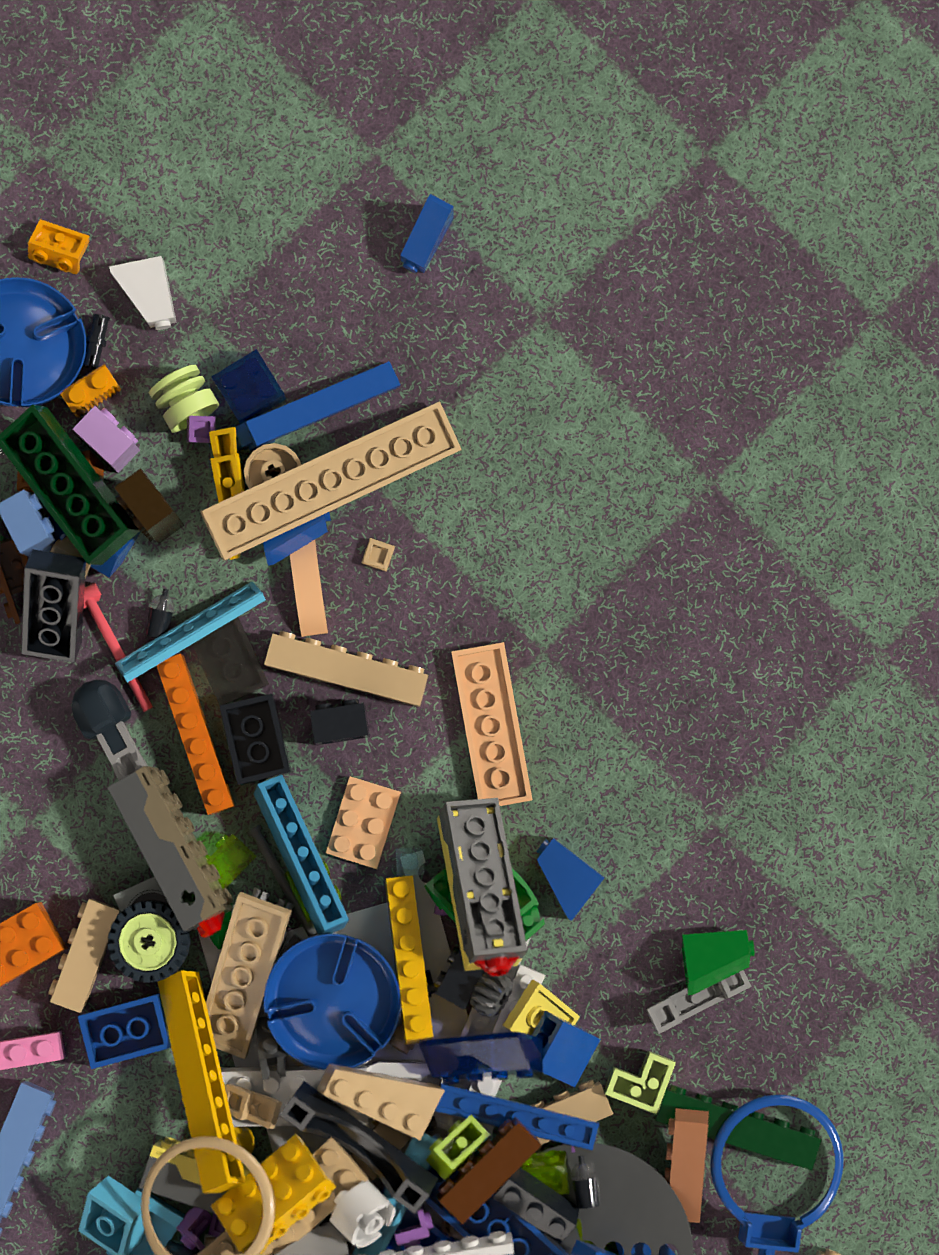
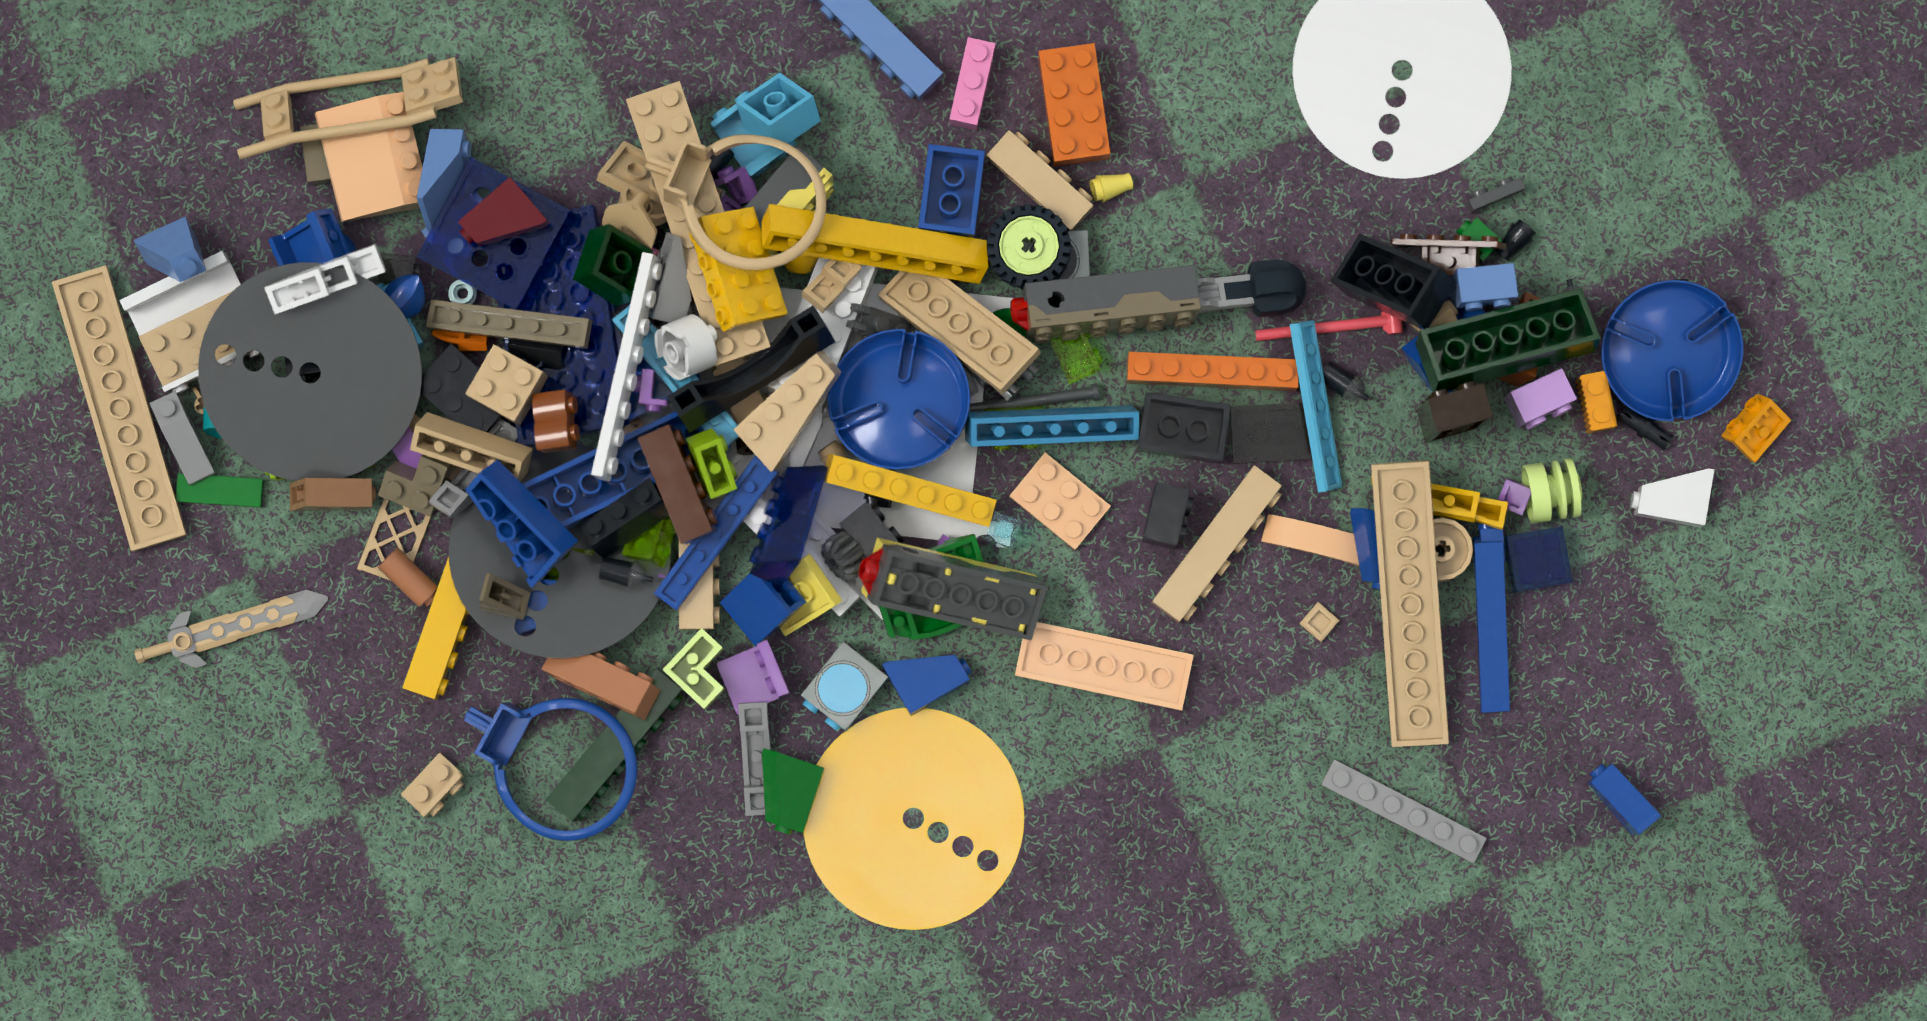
camera: 115 degrees right, 0 degrees up
(66, 892) = (1109, 186): none -> light yellow cone
(512, 418) = (1403, 811): none -> light grey plate
(604, 946) = (843, 687): none -> panel
(627, 1030) = (753, 676): none -> medium lavender bracket
(683, 890) = (859, 828): none -> yellow piece

